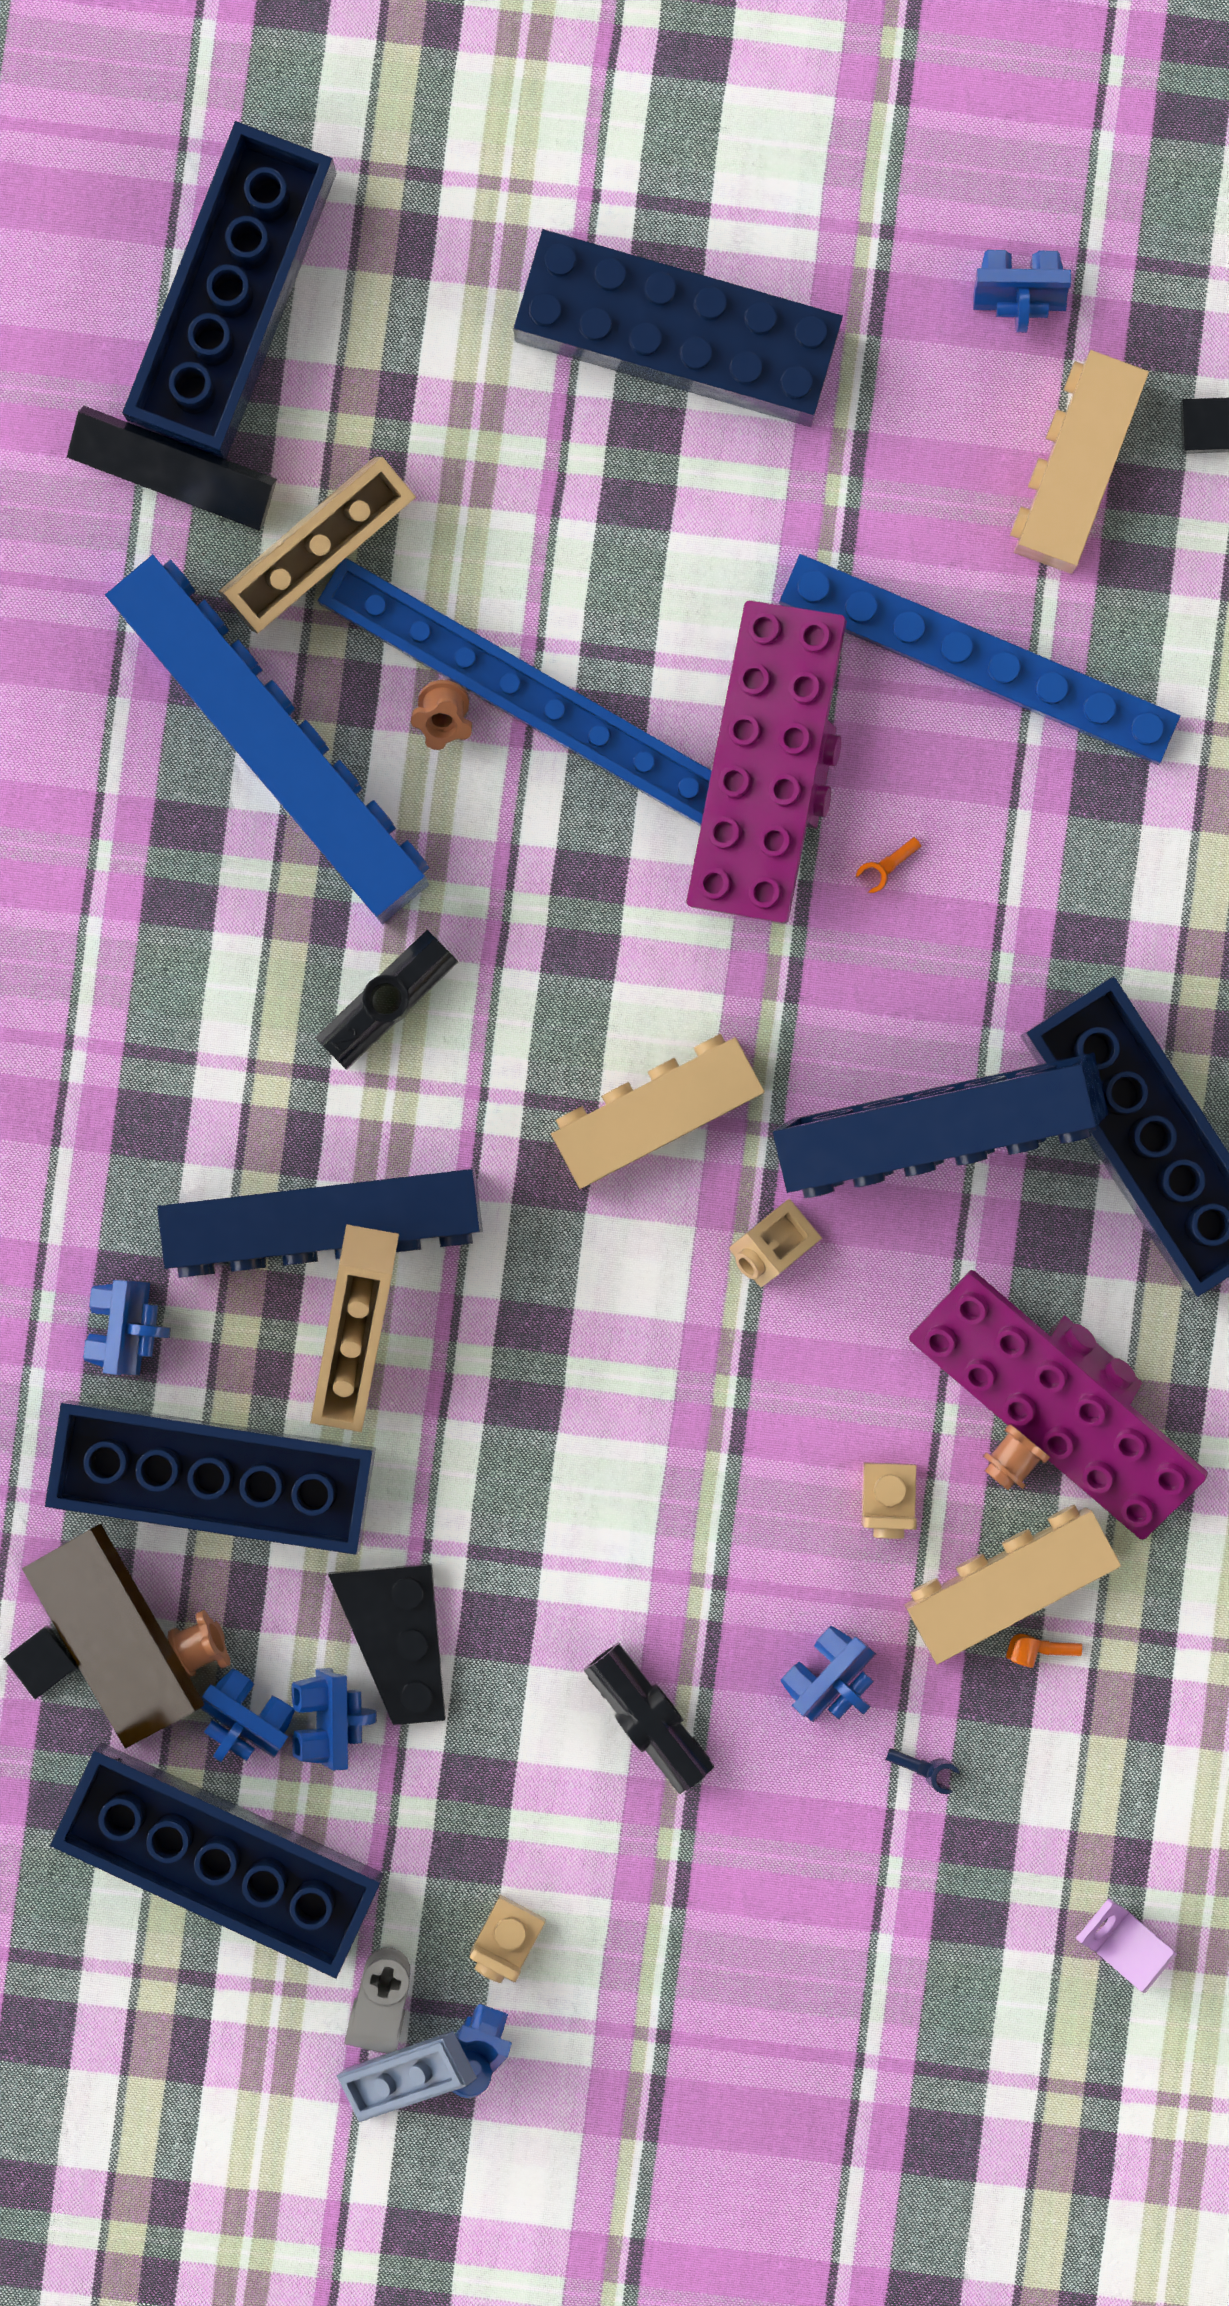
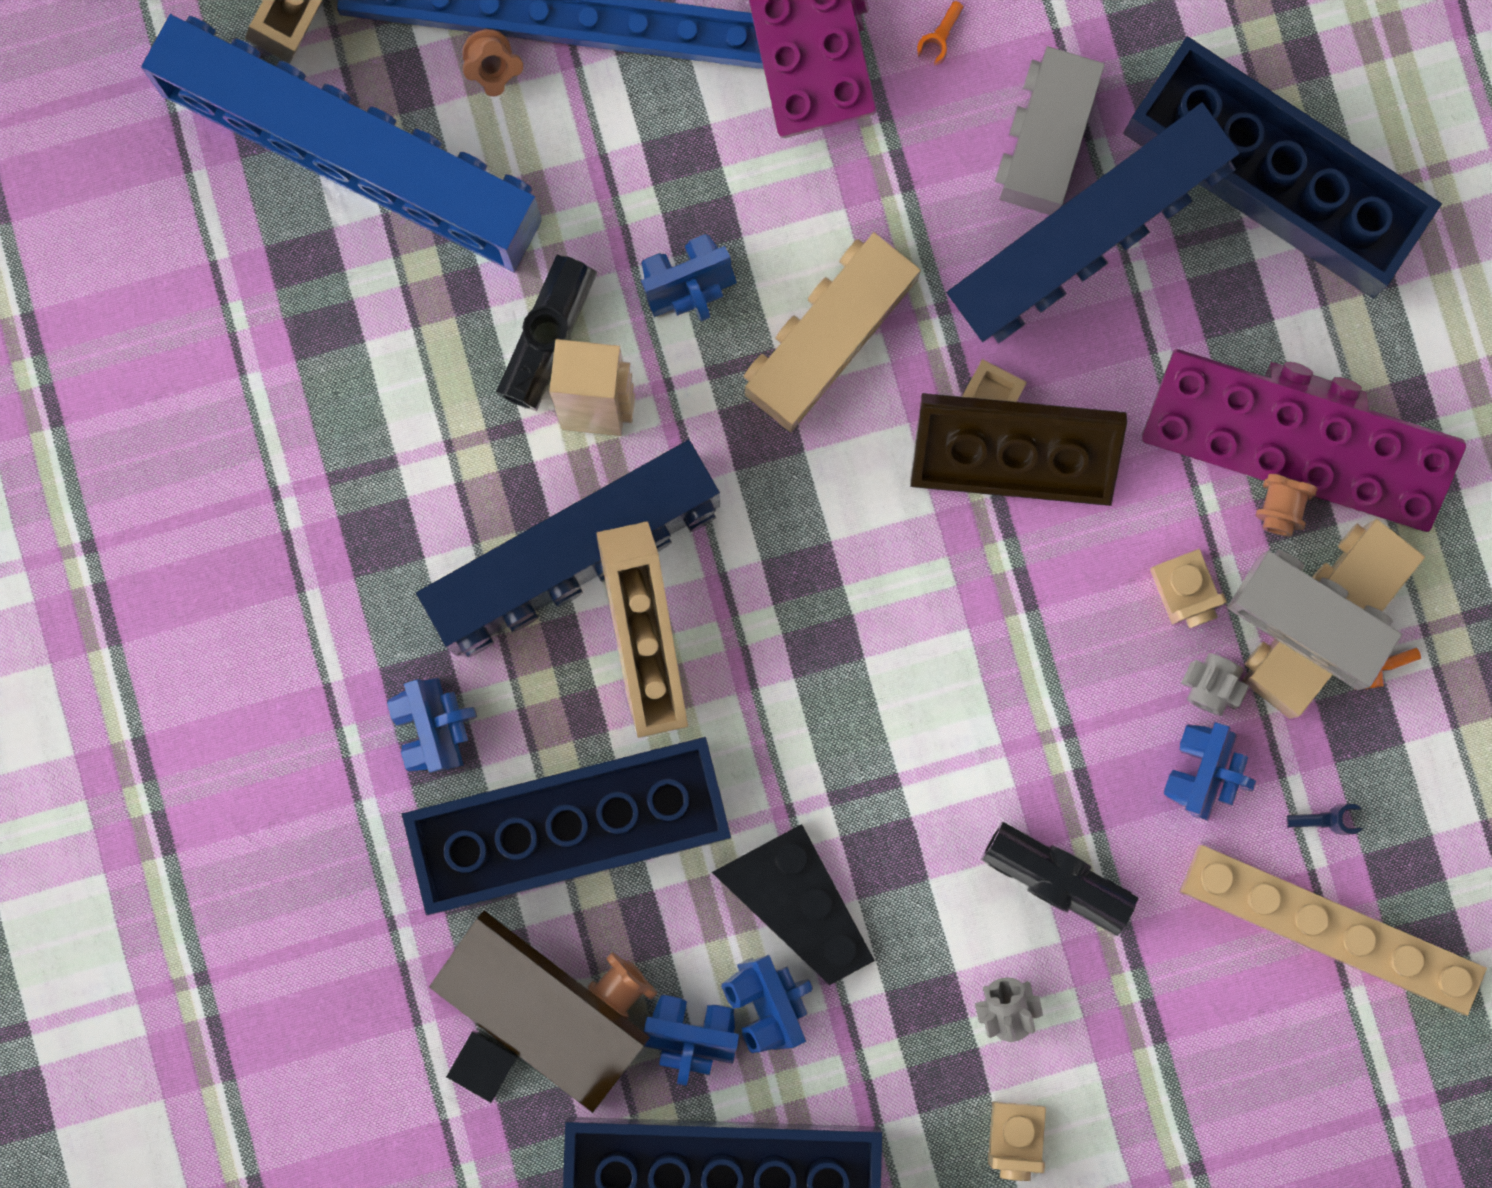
camera: 25 degrees left, 5 degrees down
(400, 1083) = (591, 387): none -> tan brick
(542, 1011) = (689, 283): none -> blue hips
(548, 1818) = (1009, 1009): none -> light grey gear
(783, 1301) = (1017, 449): none -> dark brown tile
(873, 1600) = (1215, 684): none -> light grey gear
(884, 1872) = (1333, 930): none -> tan plate
(948, 1005) = (1049, 130): none -> light grey brick
(988, 1582) = (1315, 619): none -> light grey brick

